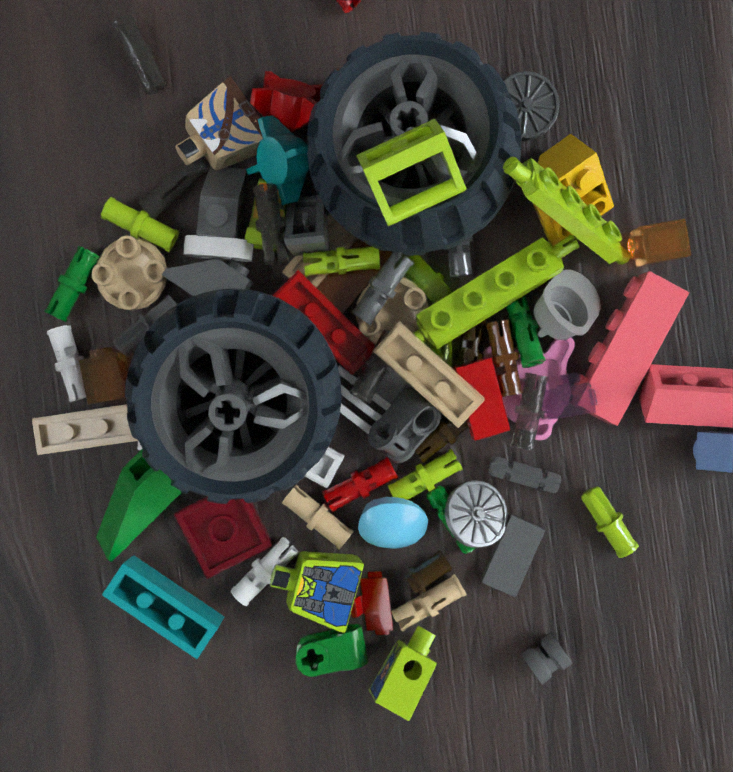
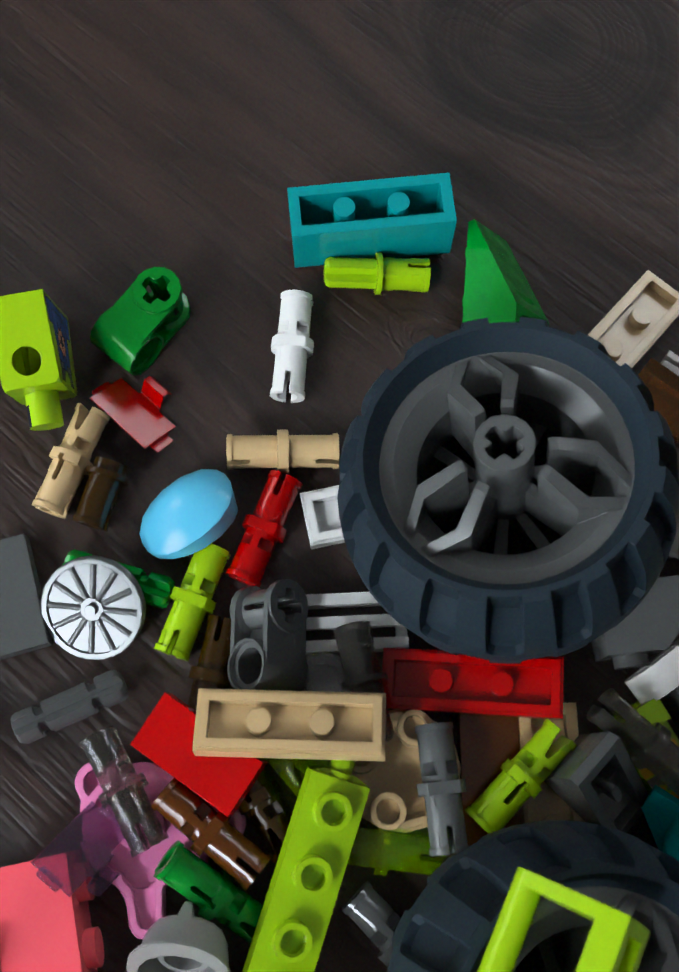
camera: 140 degrees right, 15 degrees down
(184, 574) = (378, 273): none -> lime axle
(222, 533) = (364, 342): dark red tile -> none
(321, 586) = (213, 376): torso -> none

